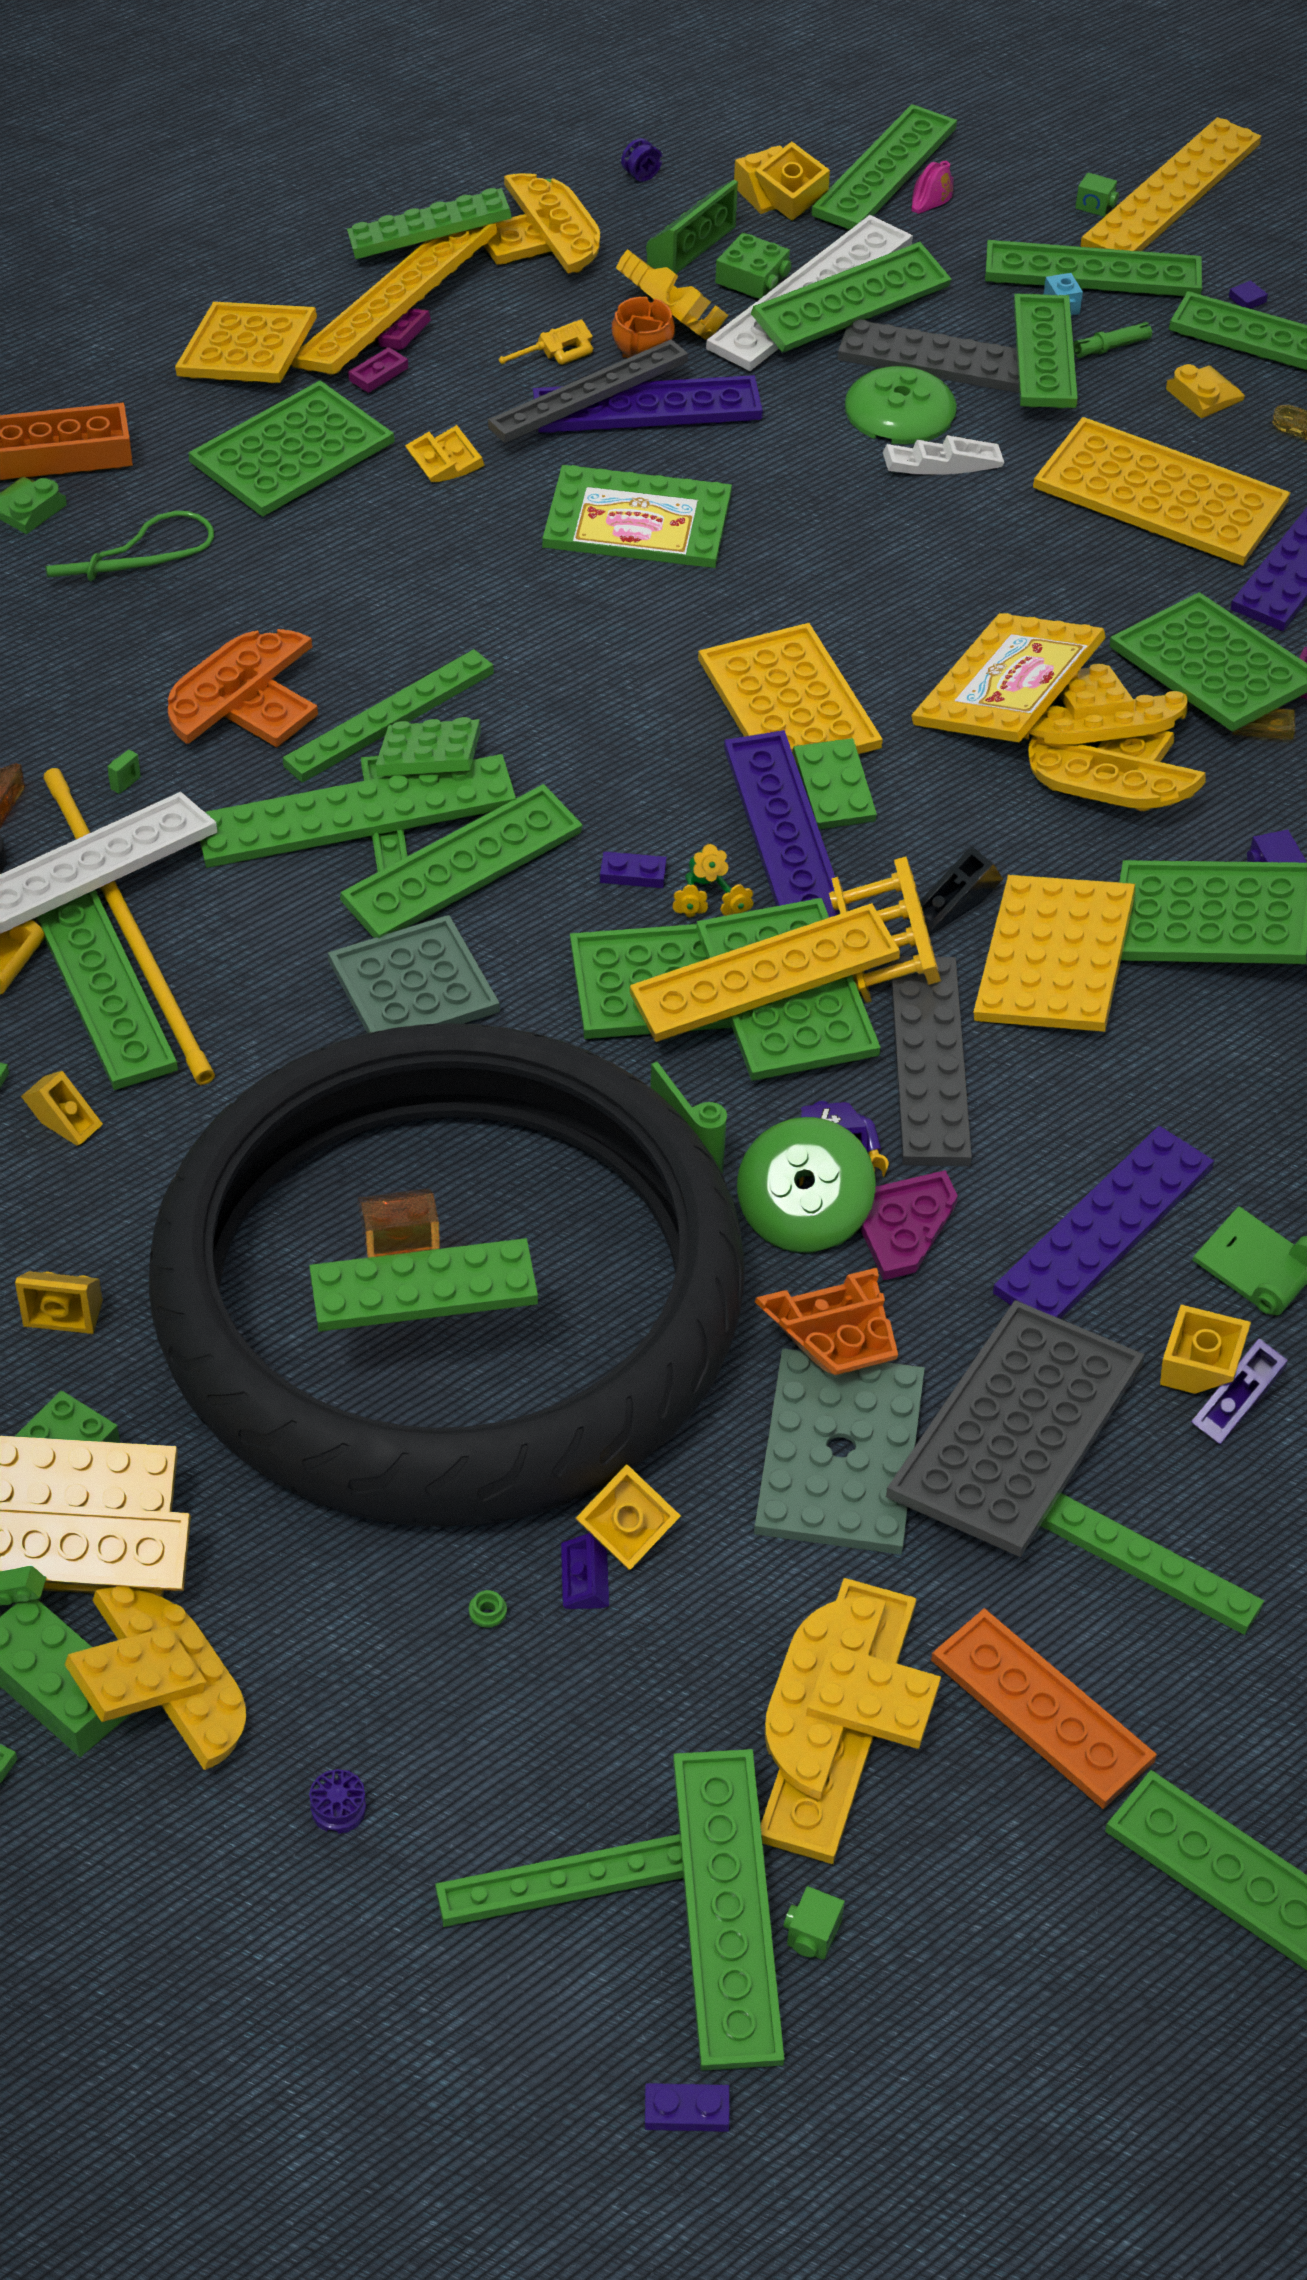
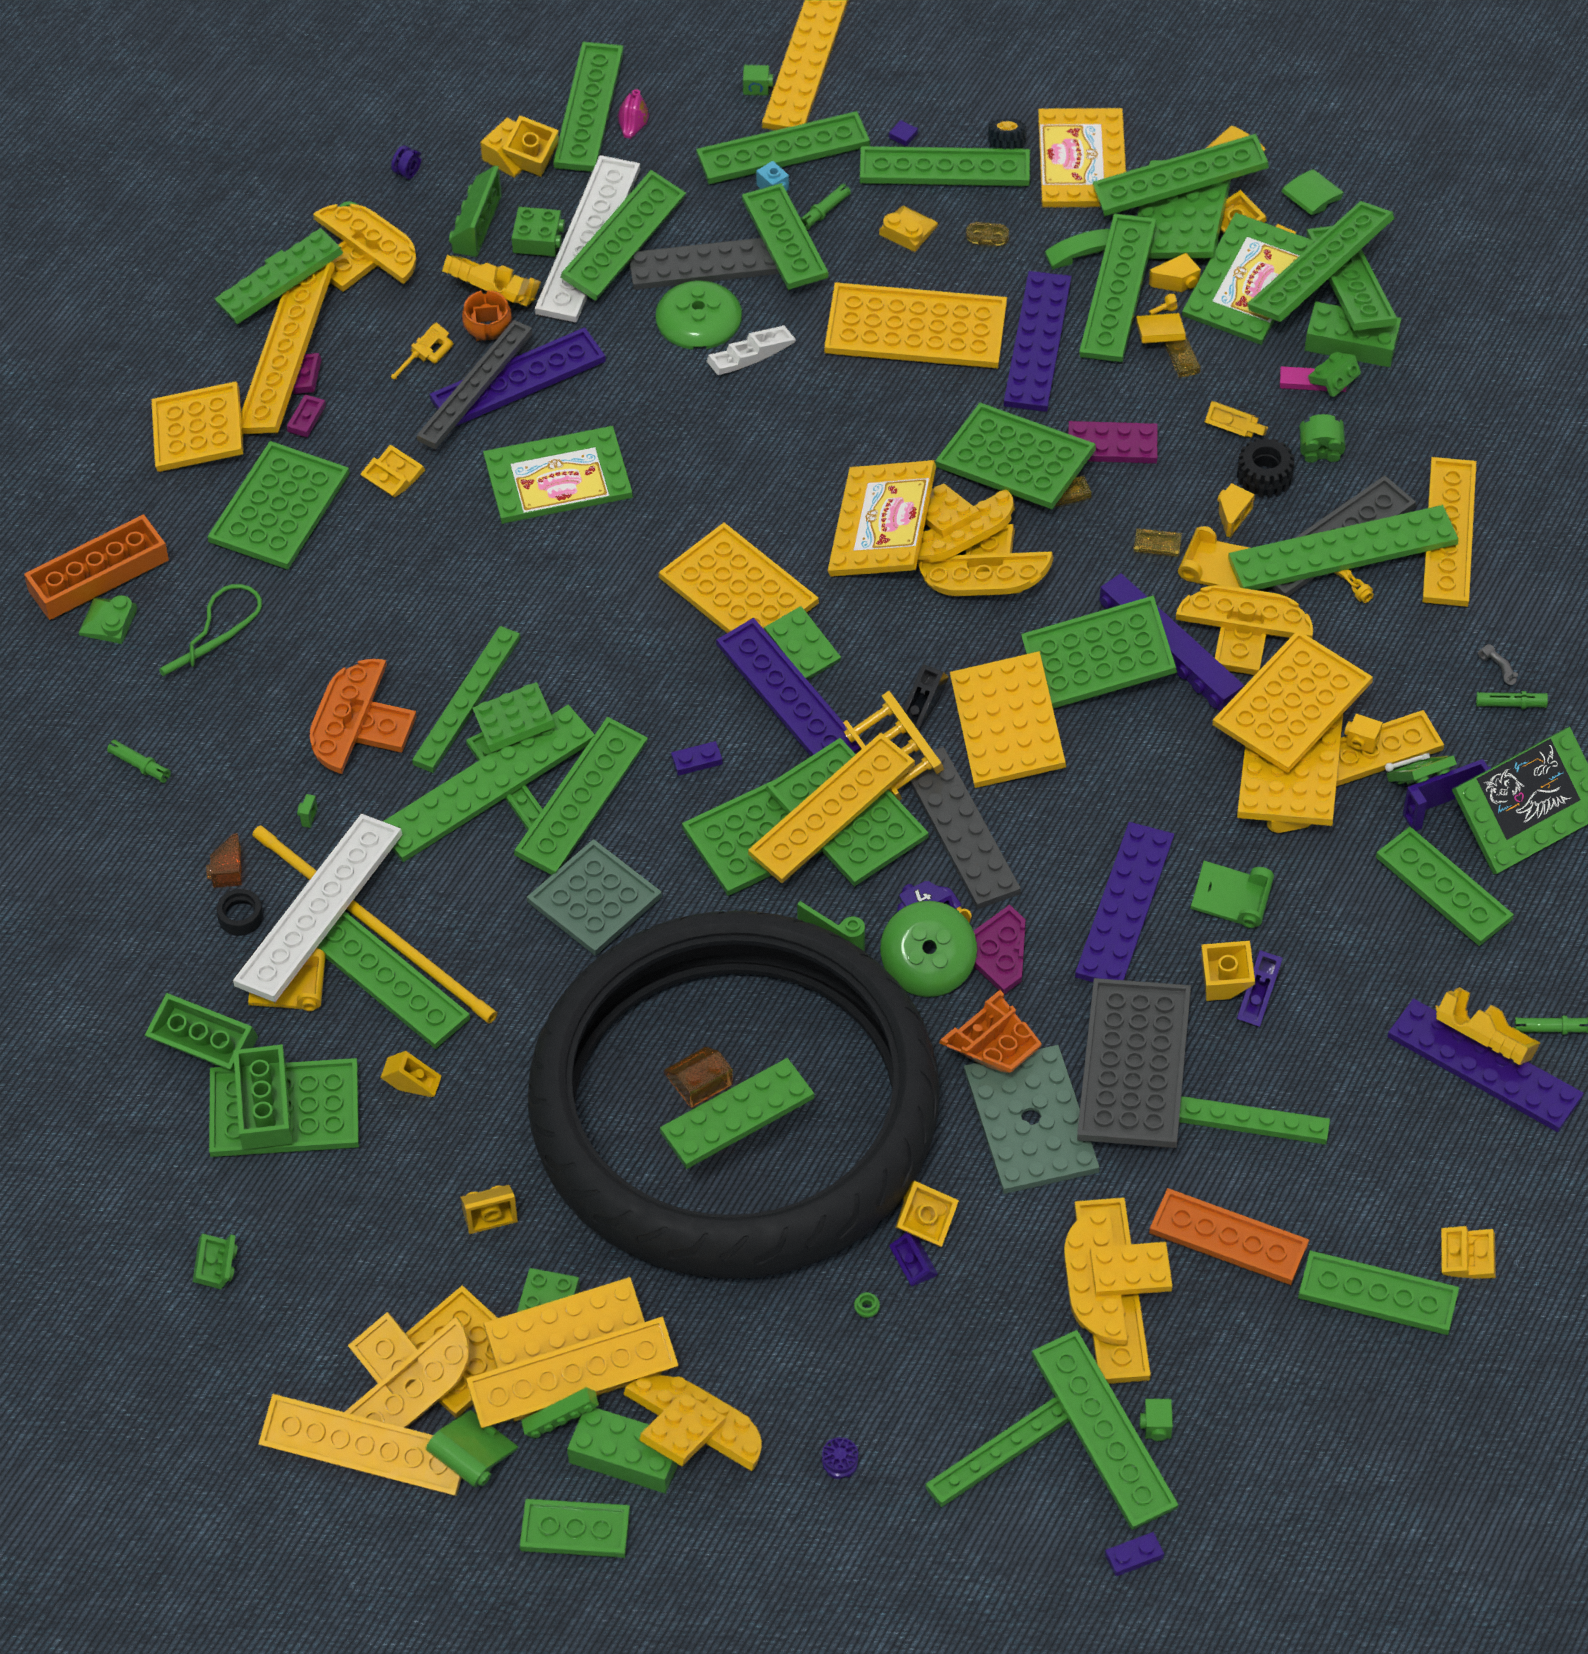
camera: 20 degrees left, 5 degrees up
(704, 868) = (756, 740): yellow plant -> none

